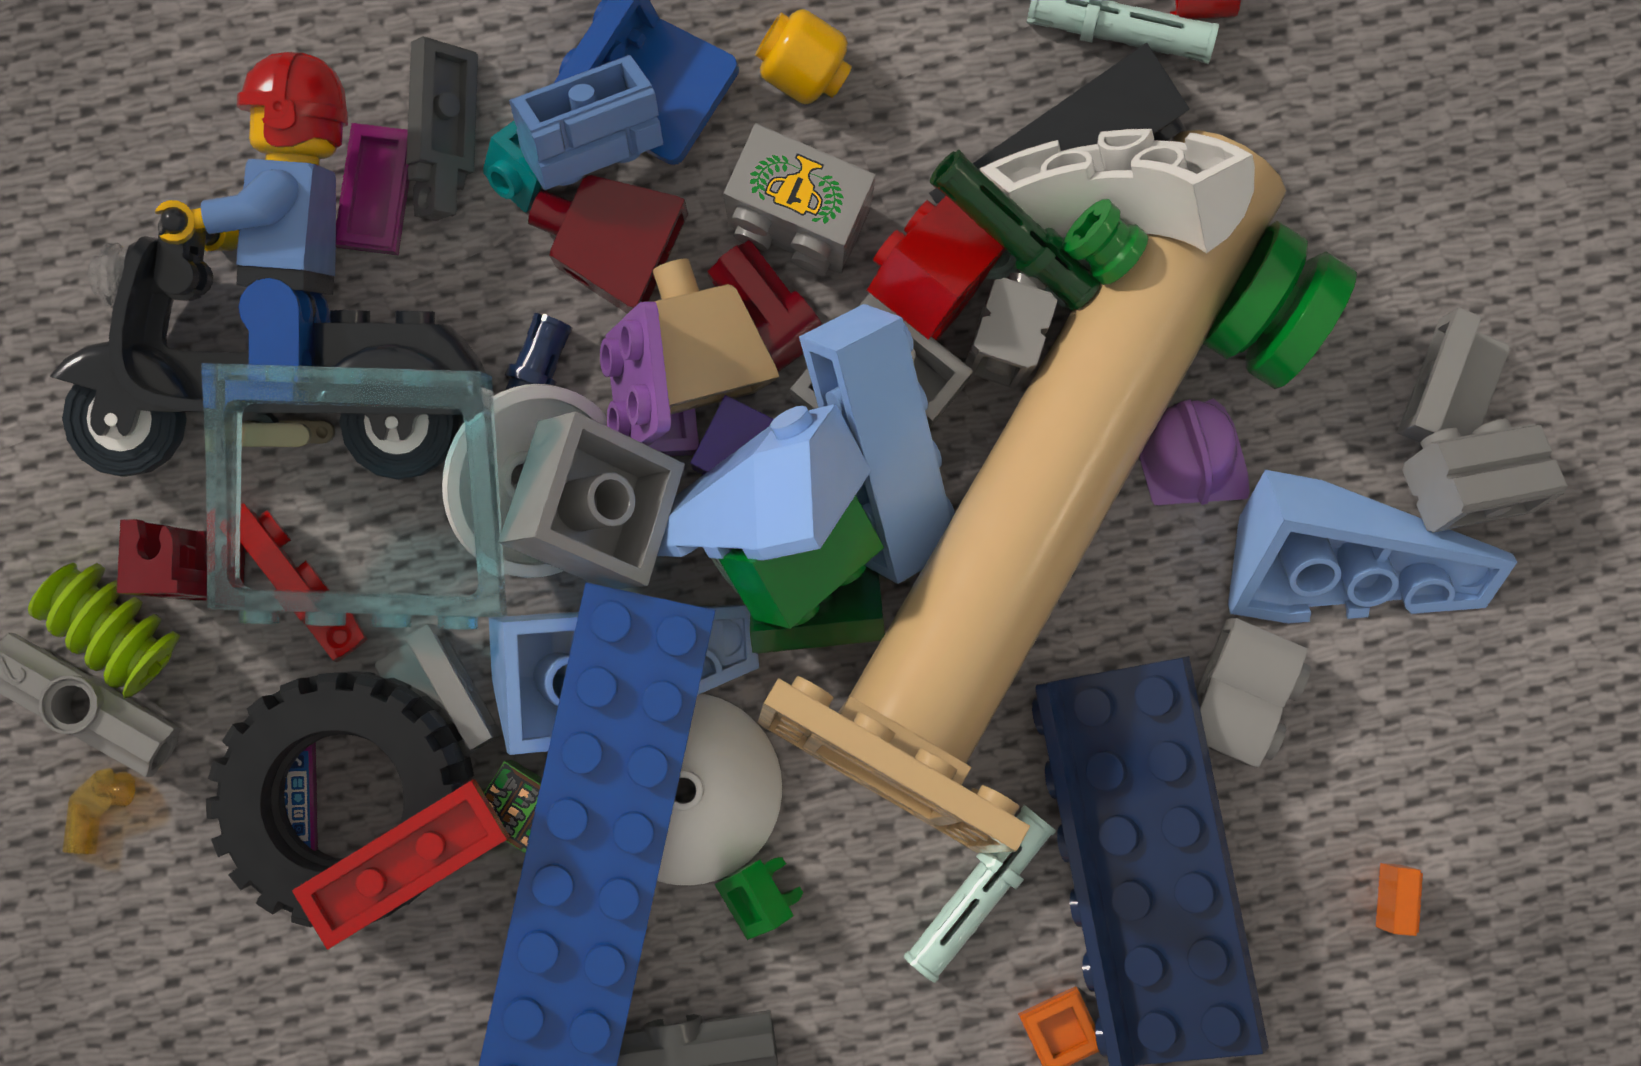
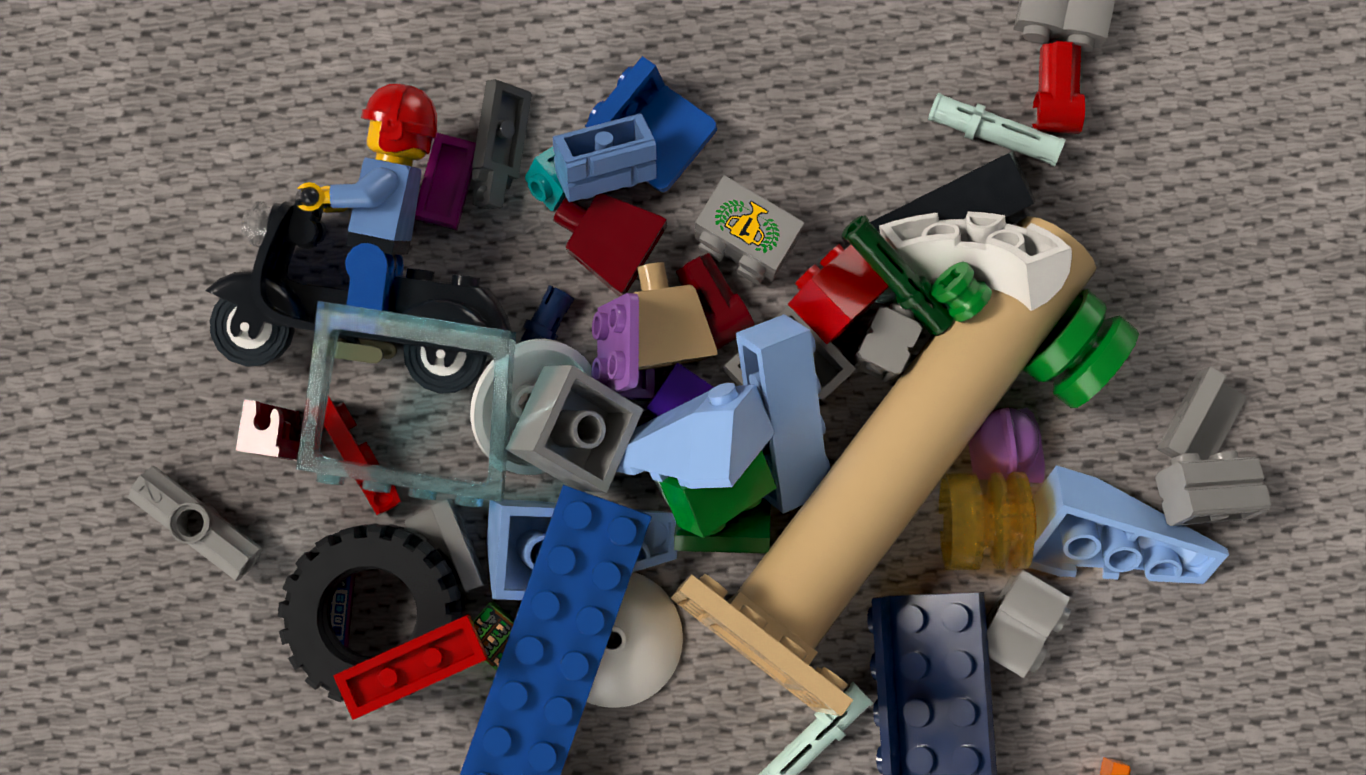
camera: 15 degrees right, 0 degrees up
(88, 805) = (192, 593): clear yellow arm -> none
(102, 627) = (218, 470): lime piece -> none
(756, 899) = (653, 722): green tile -> none
(803, 57) = (764, 125): yellow head -> none
(1192, 556) = (995, 521): none -> clear yellow wheel

